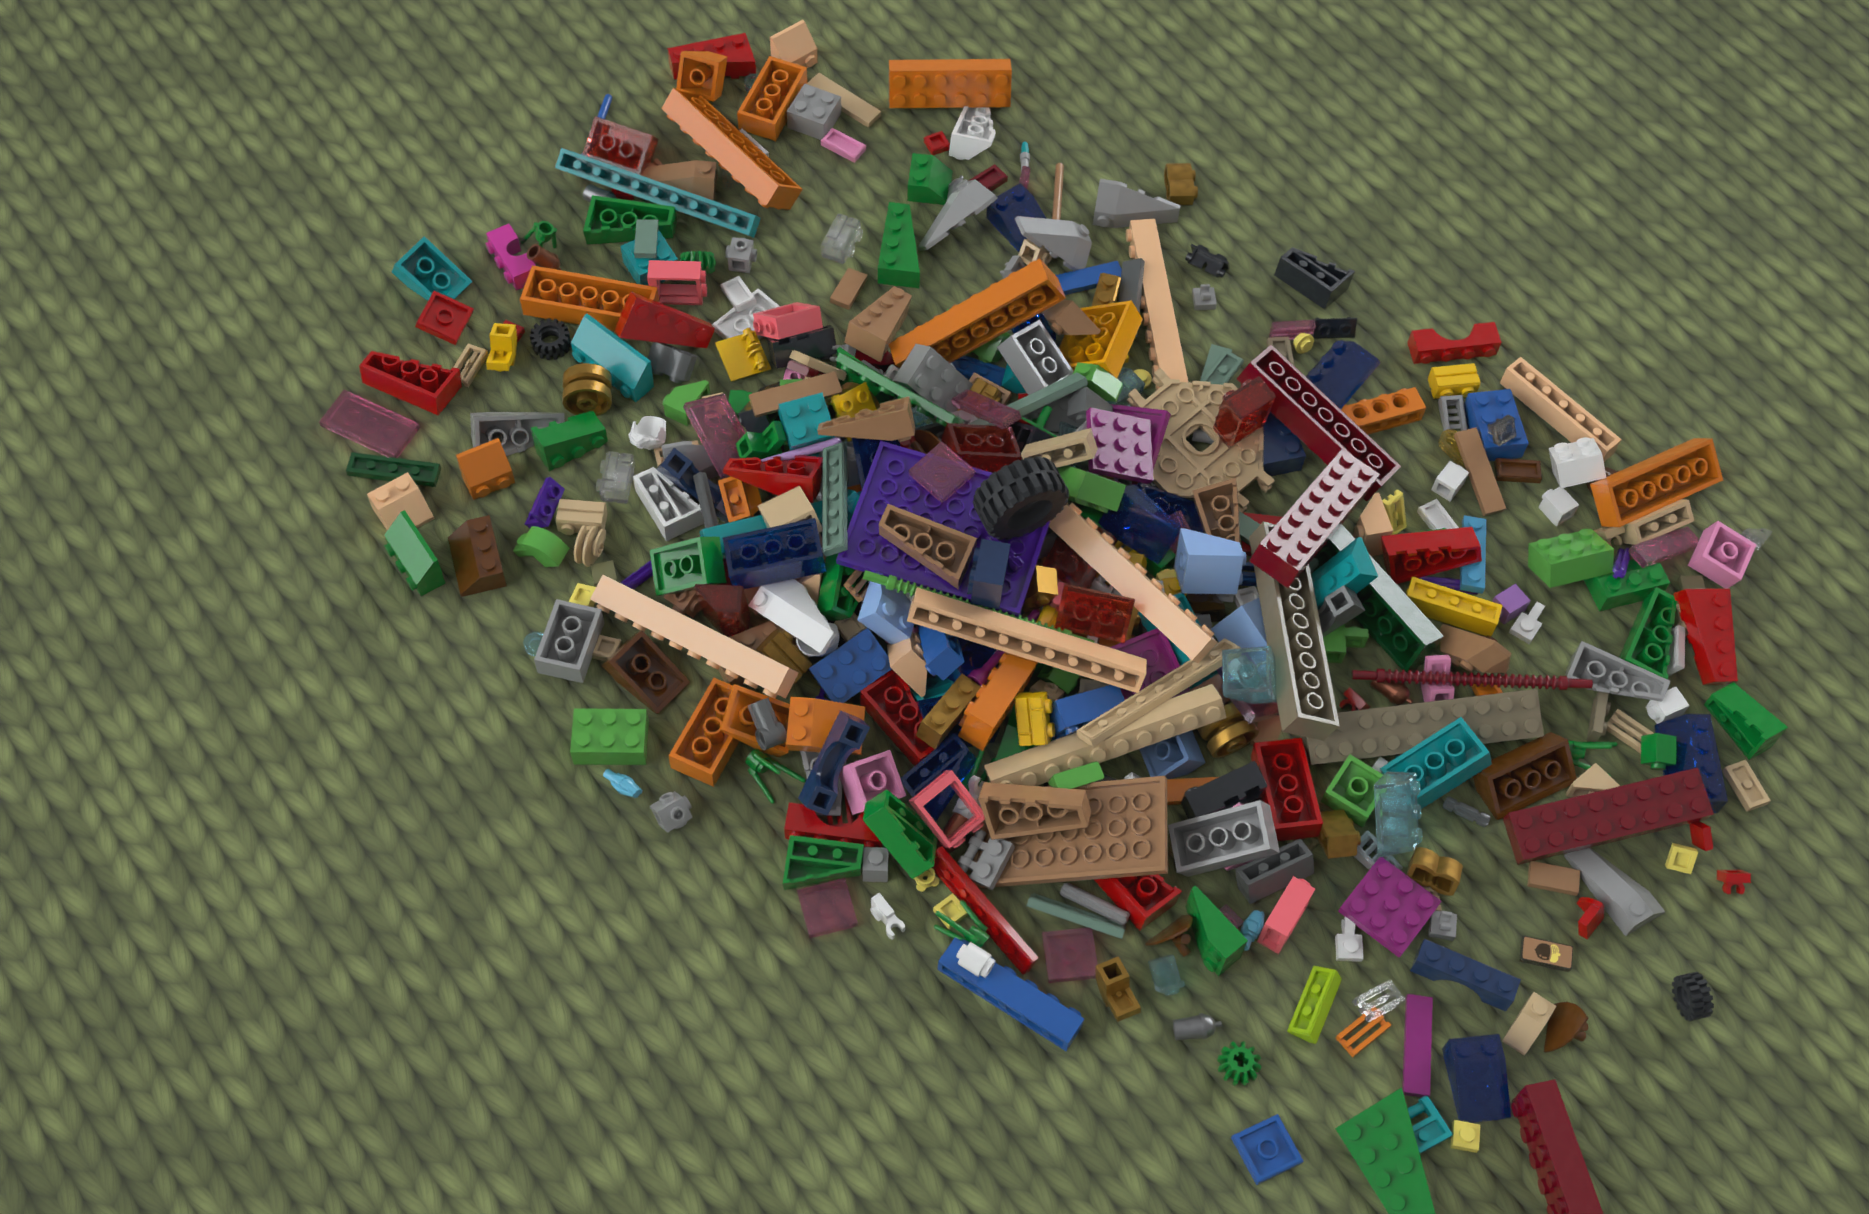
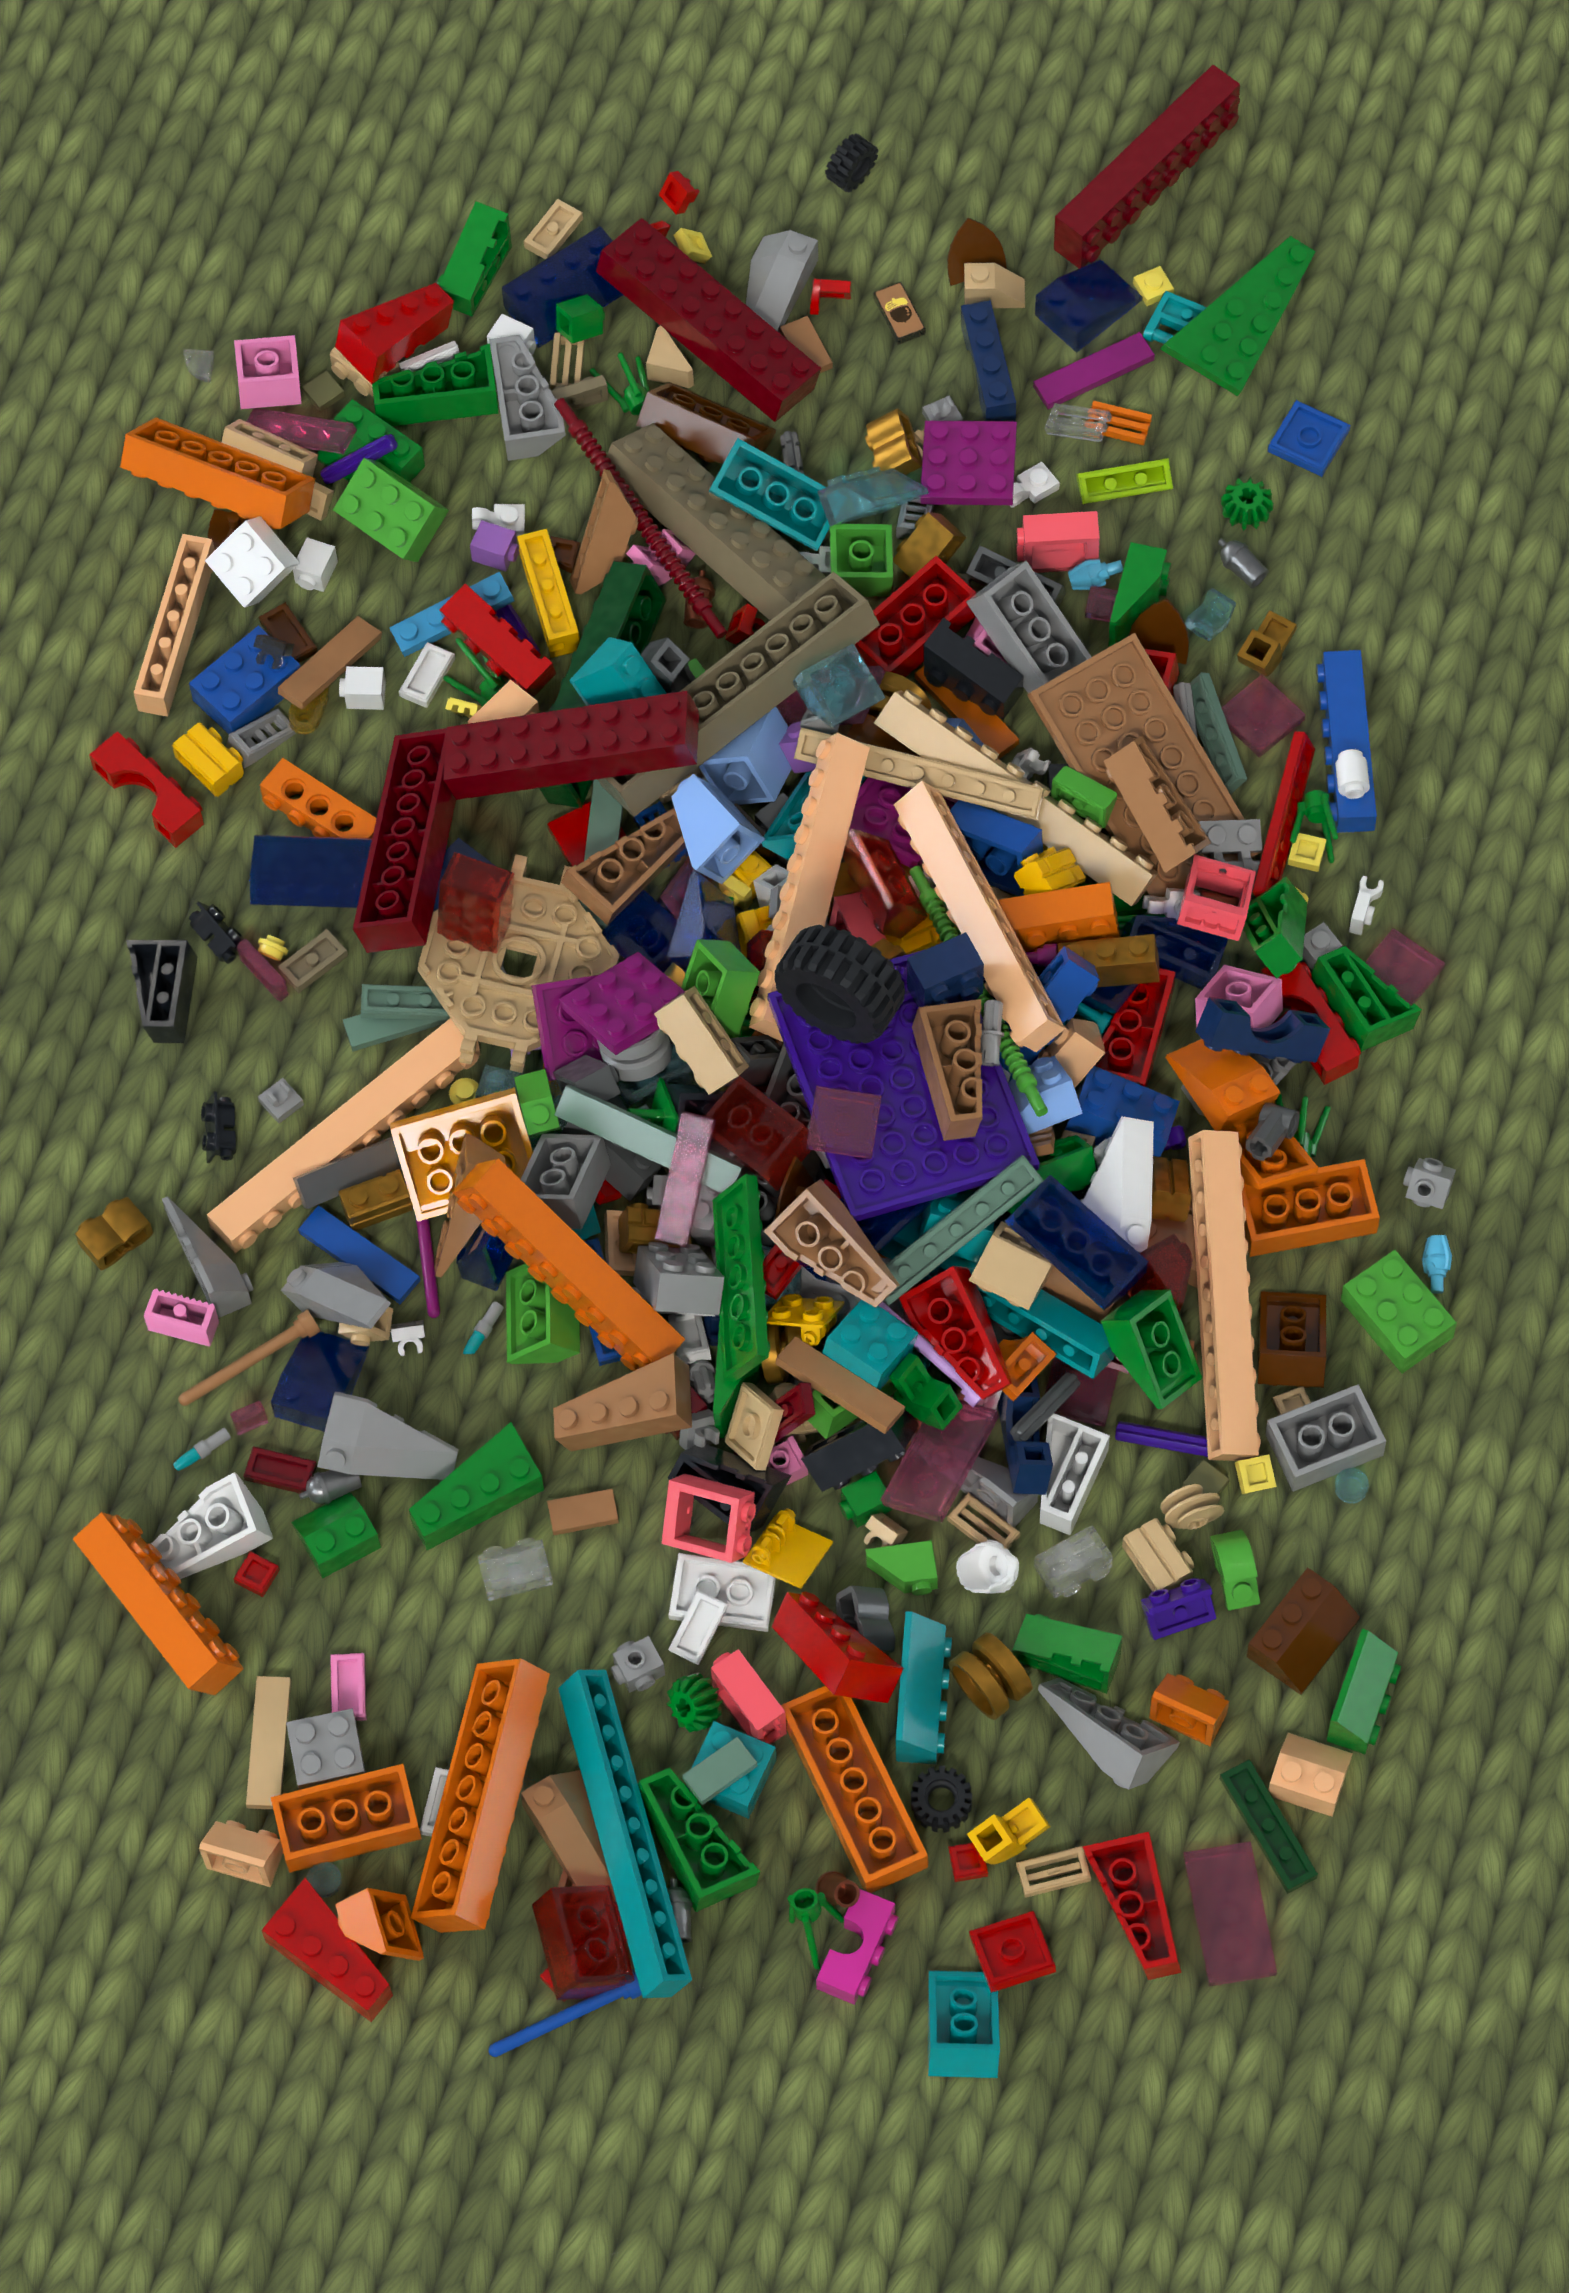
camera: 120 degrees left, 5 degrees up
(935, 580) = (991, 1033): none -> light grey axle
(1111, 170) = (181, 1317): none -> bright pink brick

